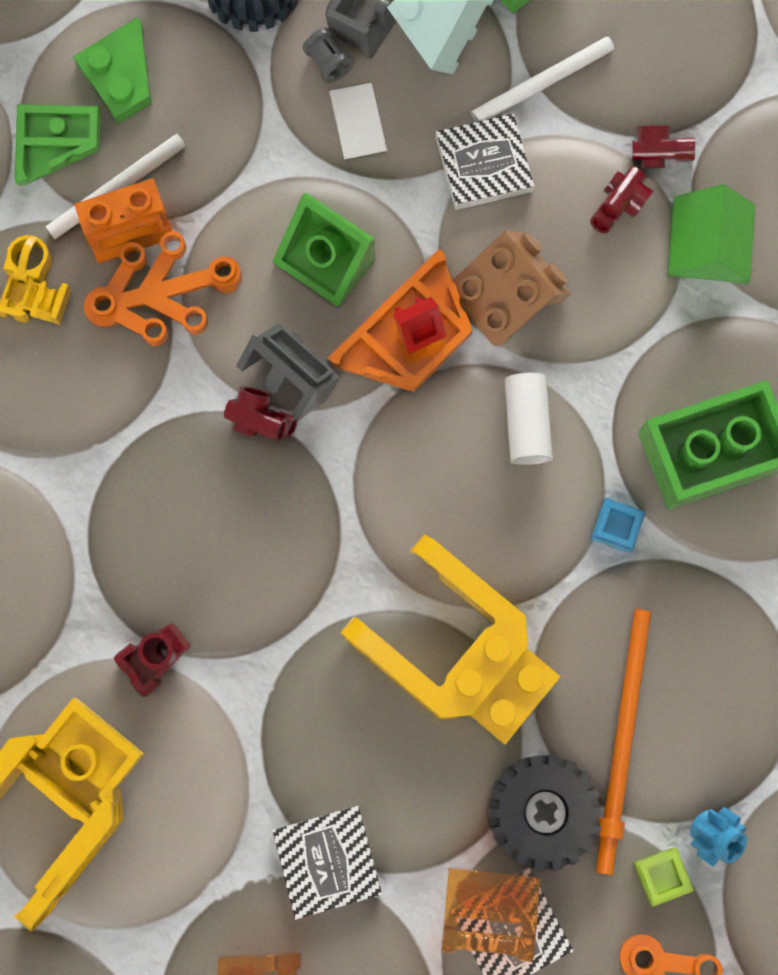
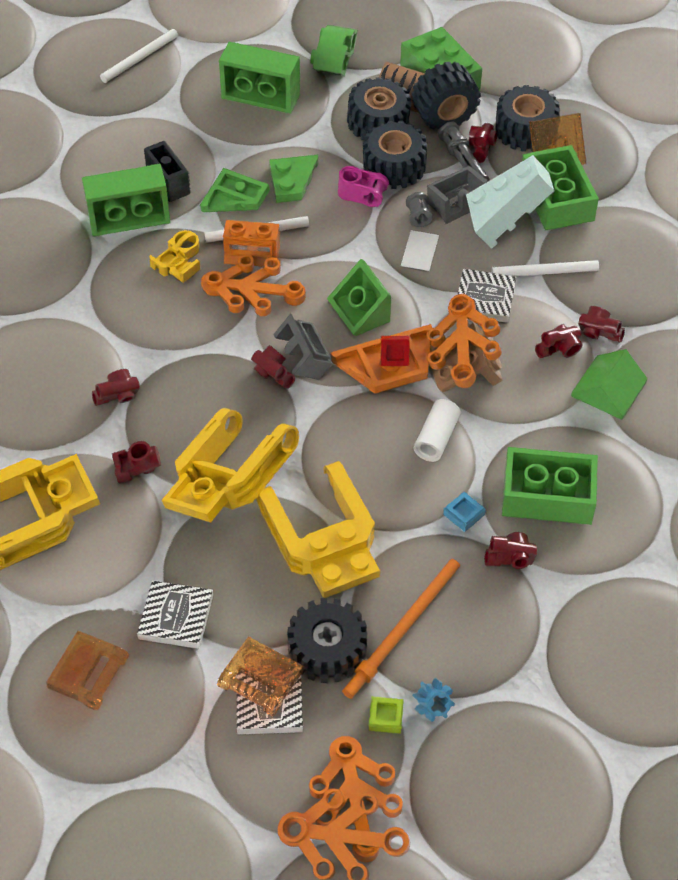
camera: 25 degrees right, 25 degrees down
(68, 545) = (119, 386): none -> dark red plate
(231, 47) = (359, 186): none -> dark pink piece
(278, 667) = (209, 487): none -> yellow plate
(501, 263) = (460, 310): none -> orange plant
(713, 561) = (510, 550): none -> dark red plate

